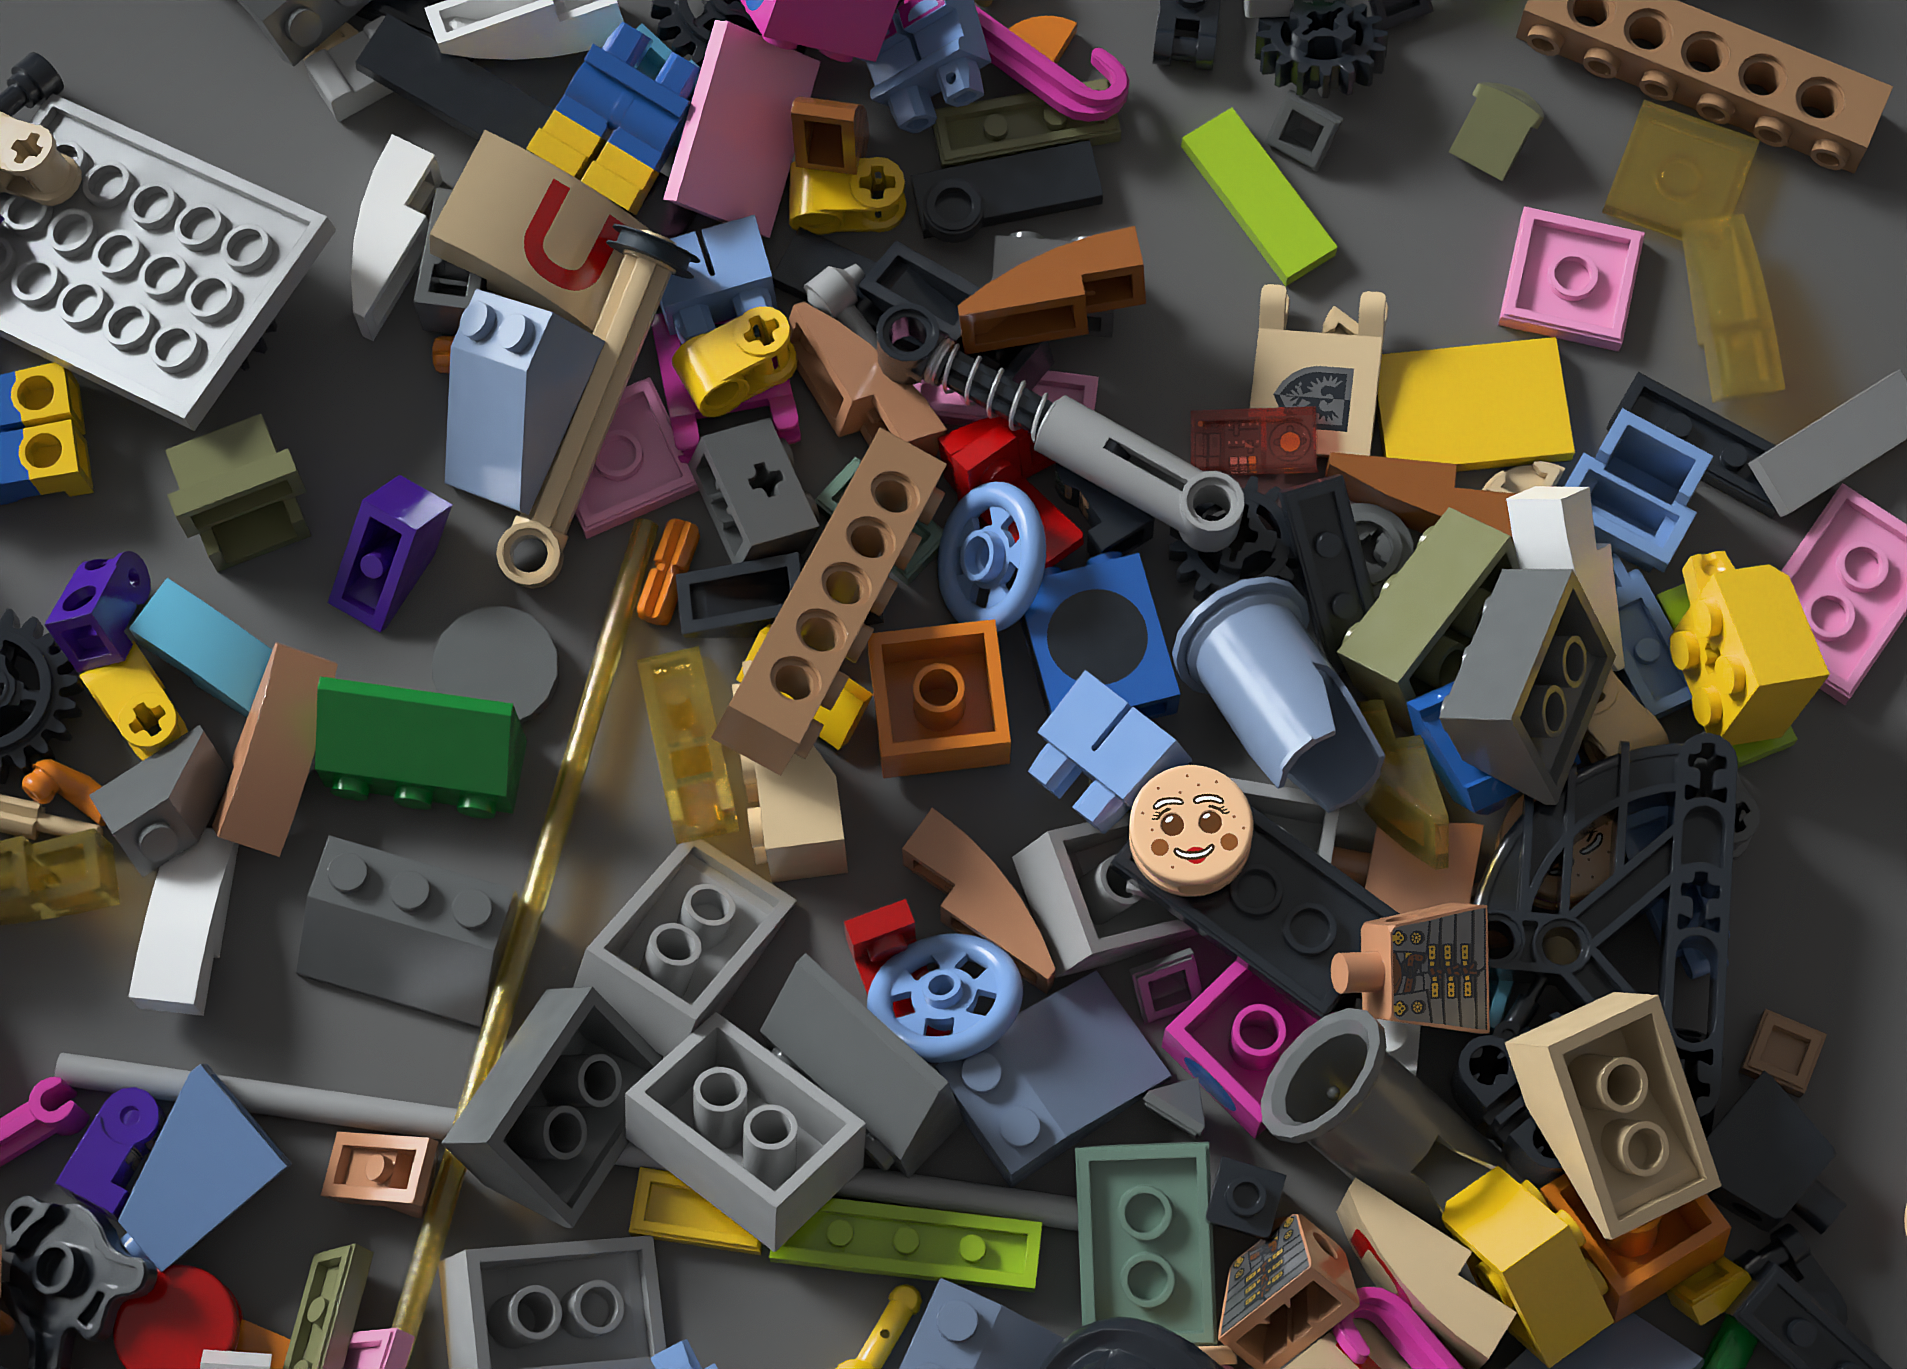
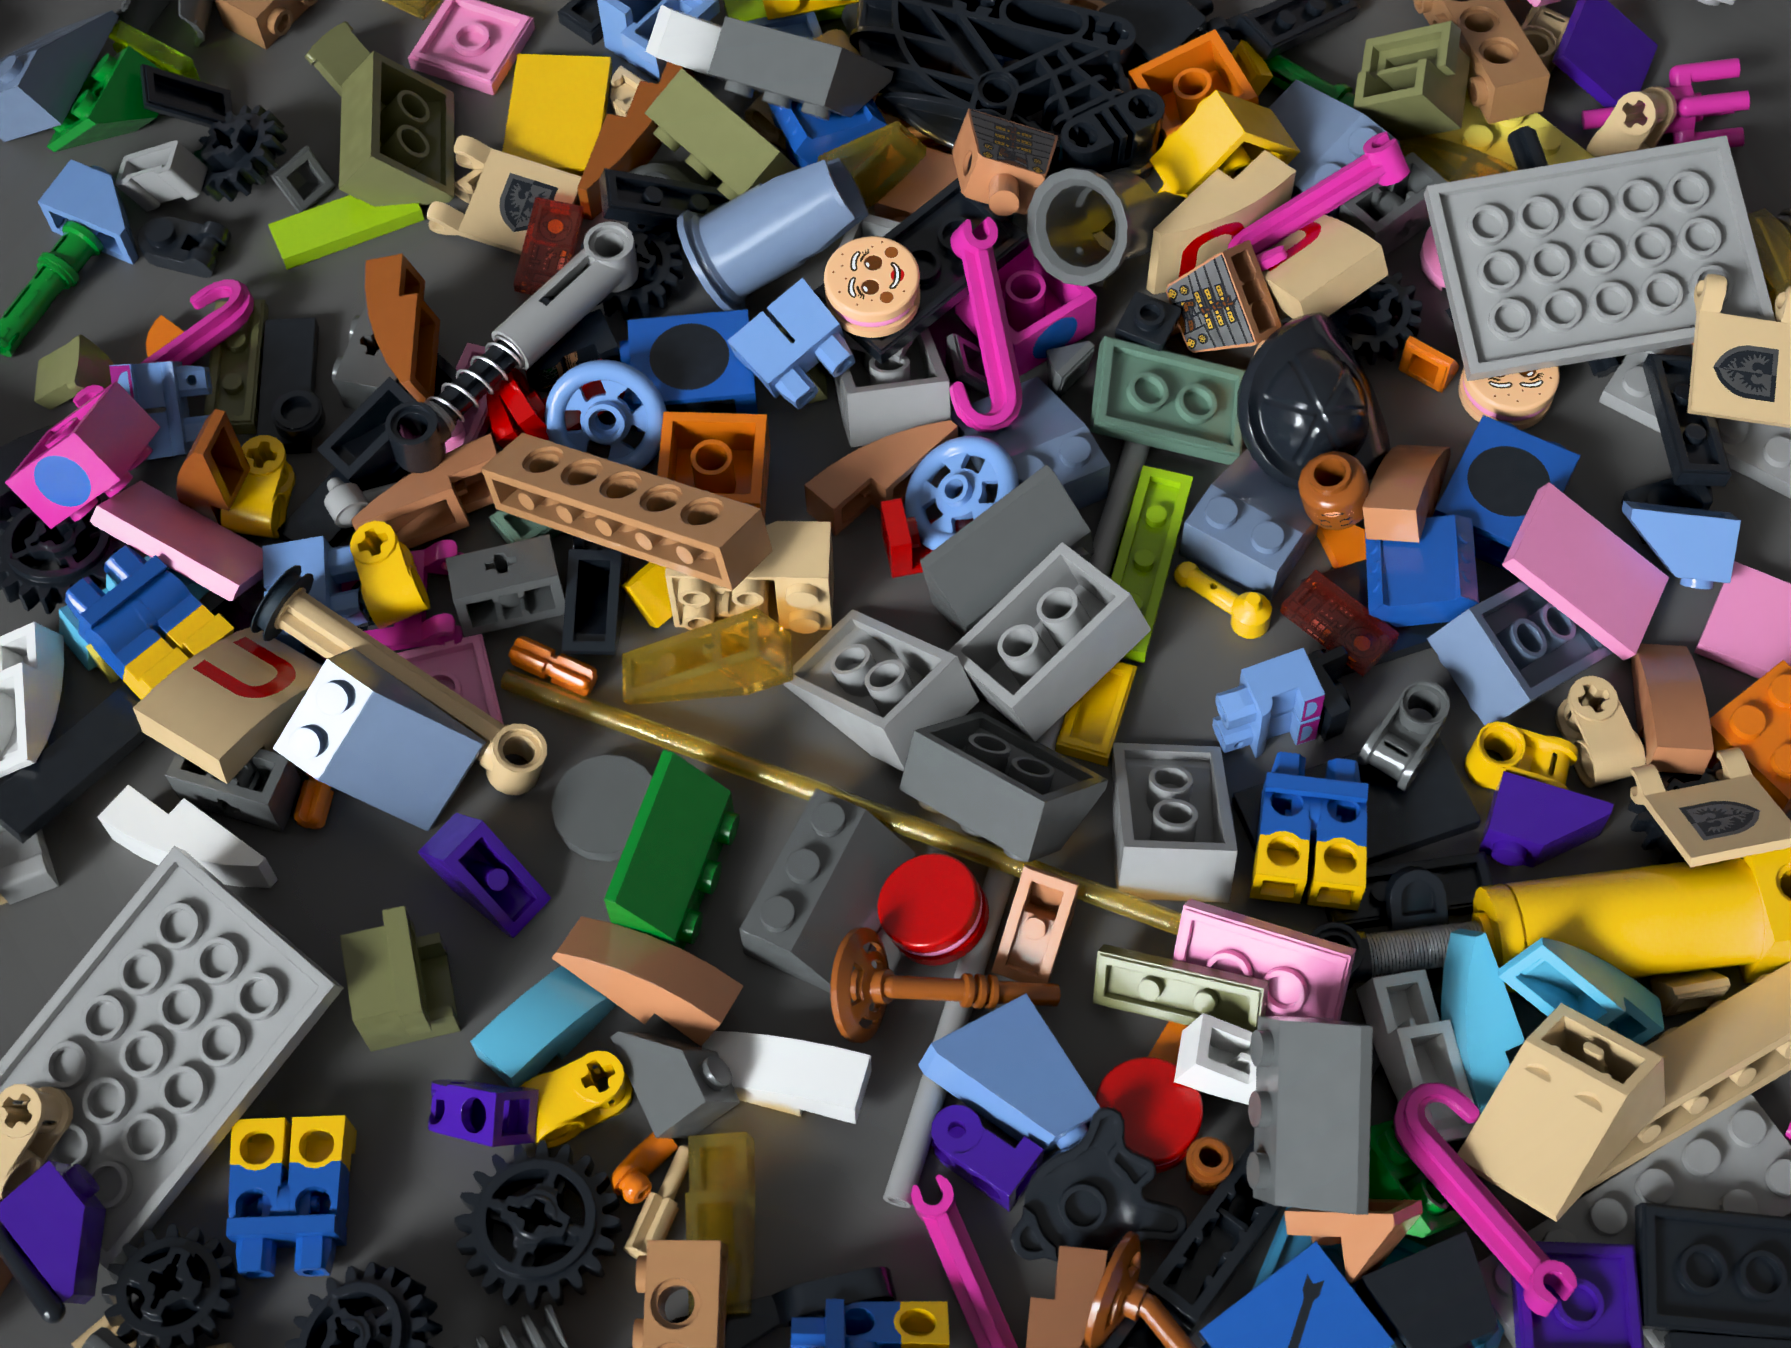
camera: 80 degrees left, 10 degrees down
(281, 1006) = (880, 986): none -> dark orange dish
(397, 1051) = (933, 909): none -> red head
(1167, 997) = (991, 329): none -> dark pink piece
(1384, 222) = (396, 136): none -> olive slope
(1616, 1109) = (1126, 58): tan slope -> none

